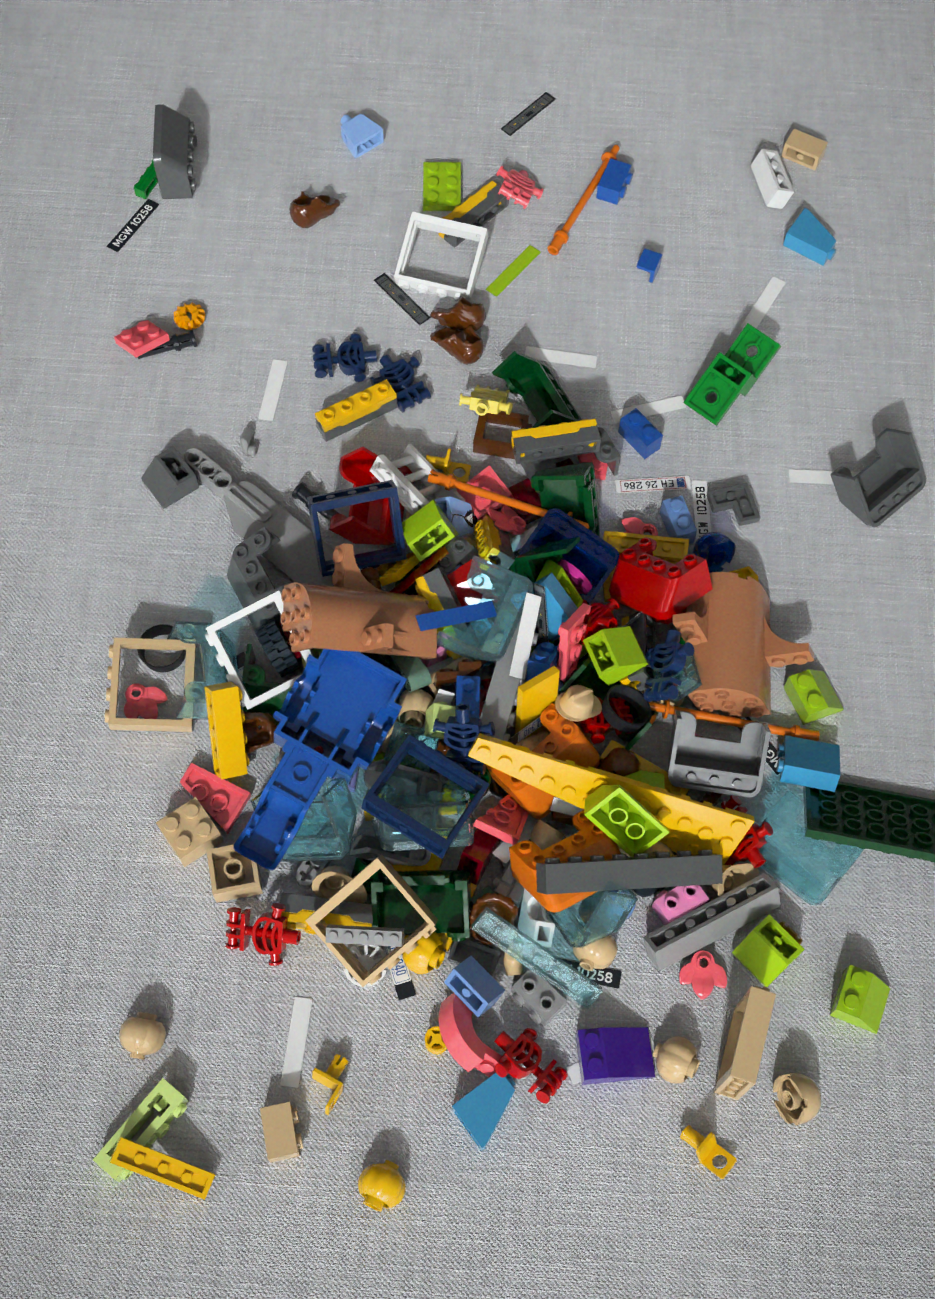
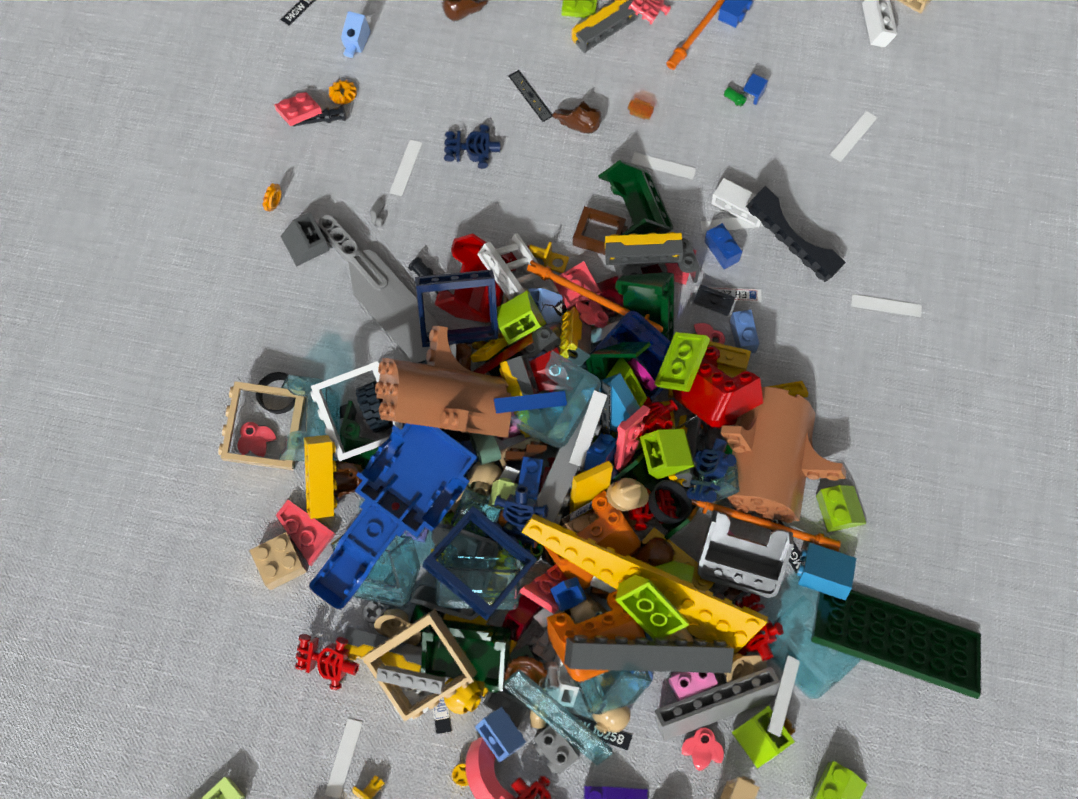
camera: 10 degrees right, 5 degrees up
(126, 436) = (272, 197): none -> light orange gear
(142, 1035) = (213, 735): tan plant -> none
(195, 251) = (355, 33): none -> light blue torso
(232, 874) = (306, 606): tan brick -> none
(250, 578) = (360, 341): dark grey windscreen -> none
(356, 410) = (474, 195): yellow piece -> none
(400, 377) = (516, 169): dark blue piece -> none
(446, 227) = (576, 34): white window -> none
(463, 345) = (576, 145): reddish brown piece -> none
(487, 401) = (591, 201): light yellow piece -> none
(513, 270) = (633, 80): lime sticker -> none
(523, 916) = (551, 680): none -> light grey pin
(527, 299) = (641, 109): none -> clear orange brick
(528, 821) = (568, 594): none -> blue panel
(616, 555) = (682, 361): none -> lime plate
(629, 276) = (736, 97): none -> green pin
(639, 492) = (714, 300): none -> black plate
(653, 385) = (733, 200): none -> white brick
(684, 388) = (820, 260): none -> black arch
(701, 507) = (767, 326): white sticker -> none
(715, 549) = (770, 364): clear blue cylinder -> none
(732, 374) = (819, 198): green bracket -> none
(736, 498) = (802, 317): dark grey plate -> none
(784, 901) = (783, 696): none -> white sticker
(810, 238) = (906, 79): dark azure slope -> none
(885, 482) = (937, 317): dark grey windscreen -> none

